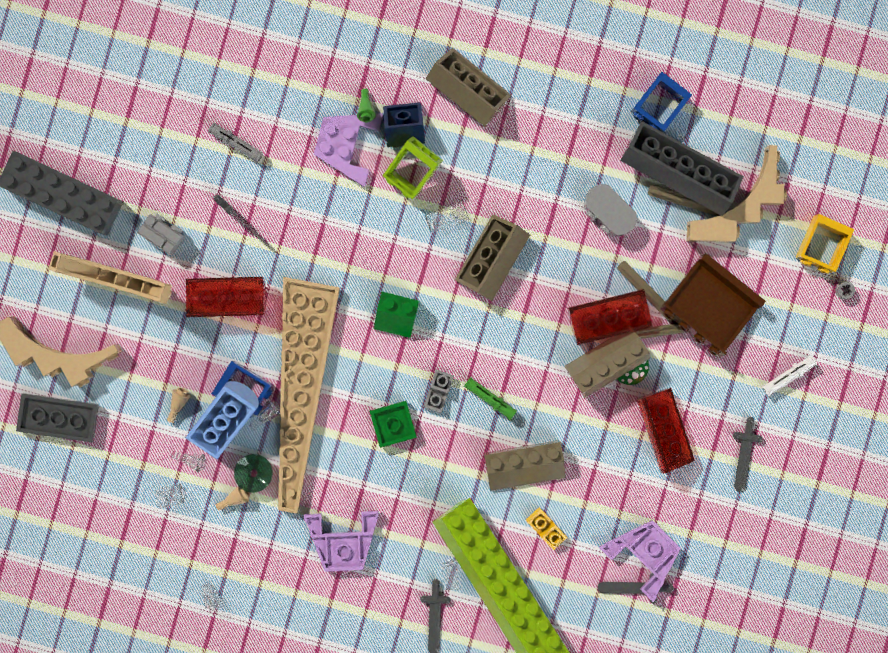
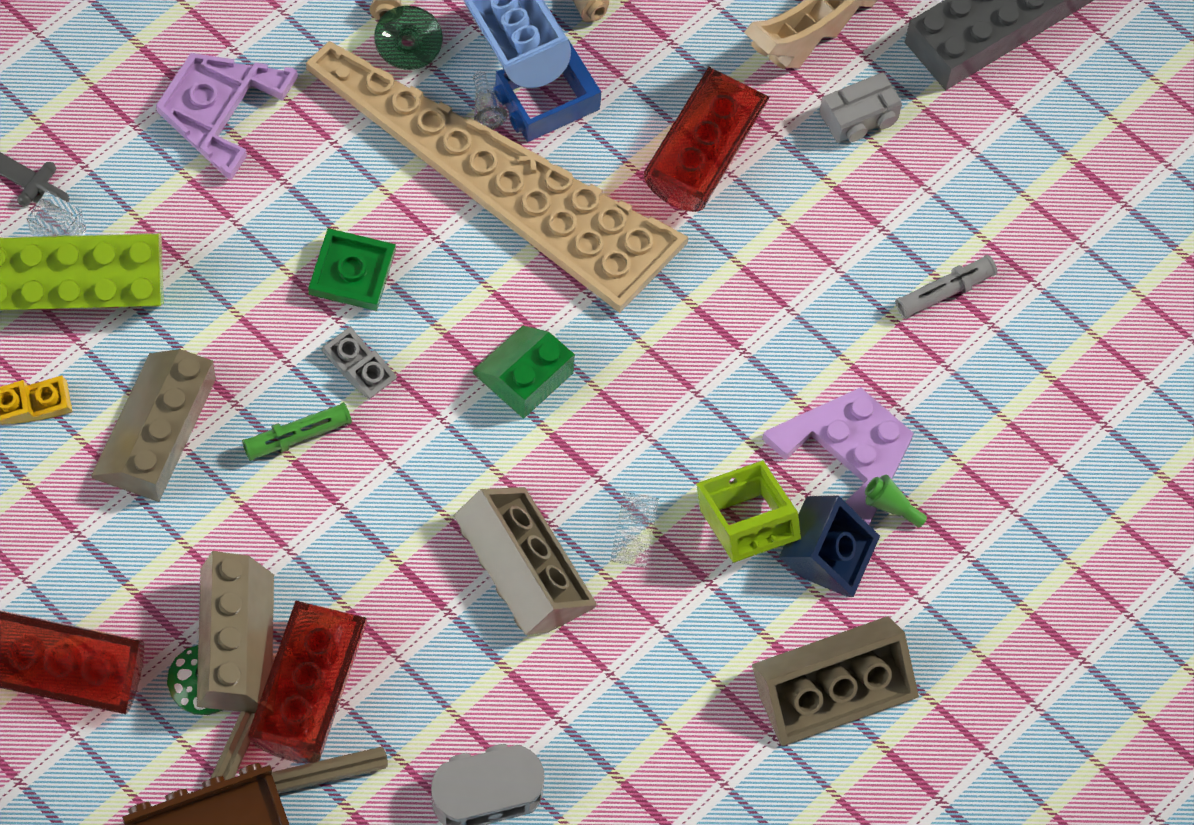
camera: 115 degrees right, 25 degrees down
(230, 210) = (841, 220): dark grey sword -> none

